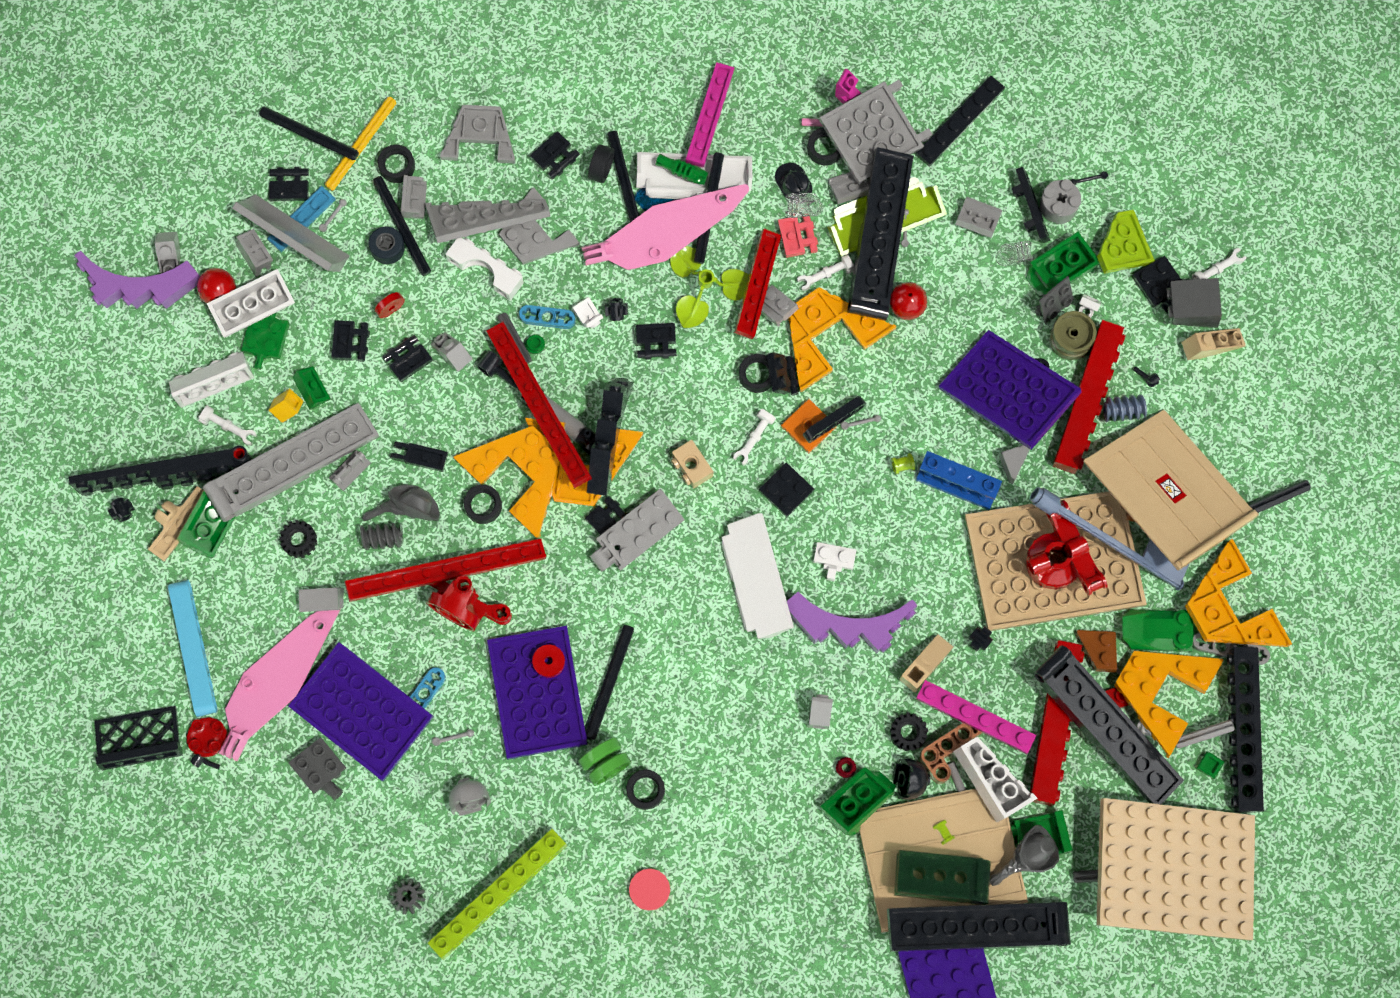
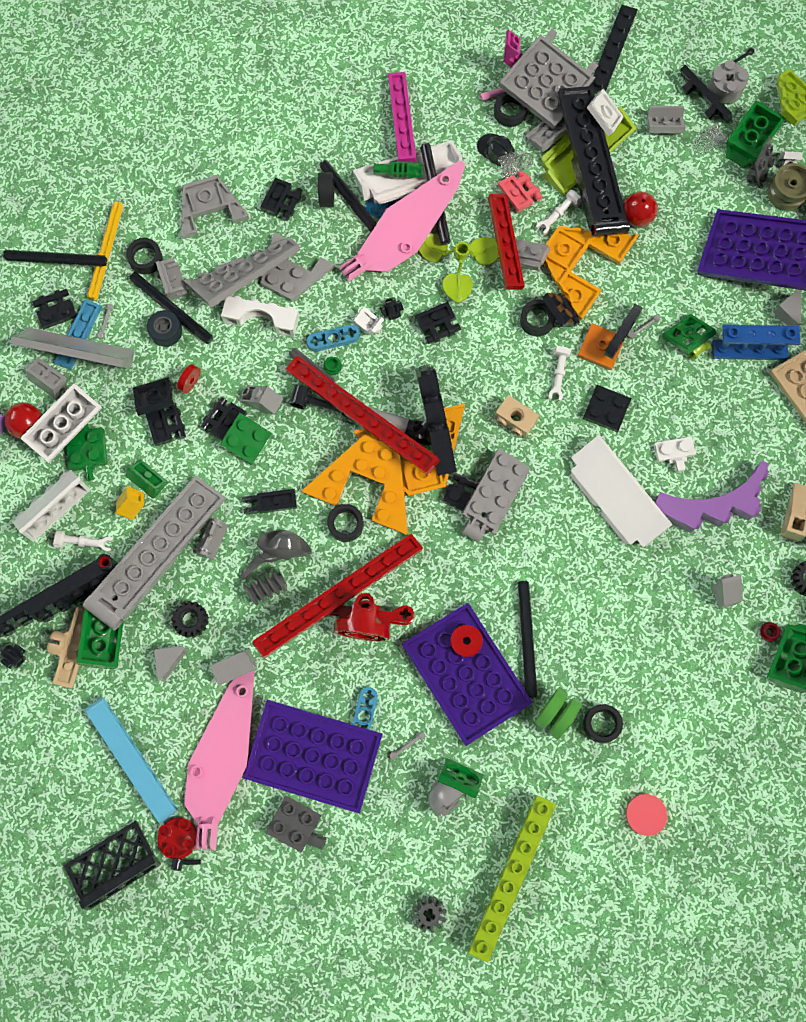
camera: 20 degrees left, 0 degrees up
(262, 569) = (167, 660): none -> light grey slope
(348, 309) = (153, 396): none -> black plate
(420, 385) = (245, 438): none -> green plate
(479, 783) = (451, 779): none -> green piece
(903, 456) = (683, 327): none -> green piece
(915, 188) = (605, 112): none -> white tile

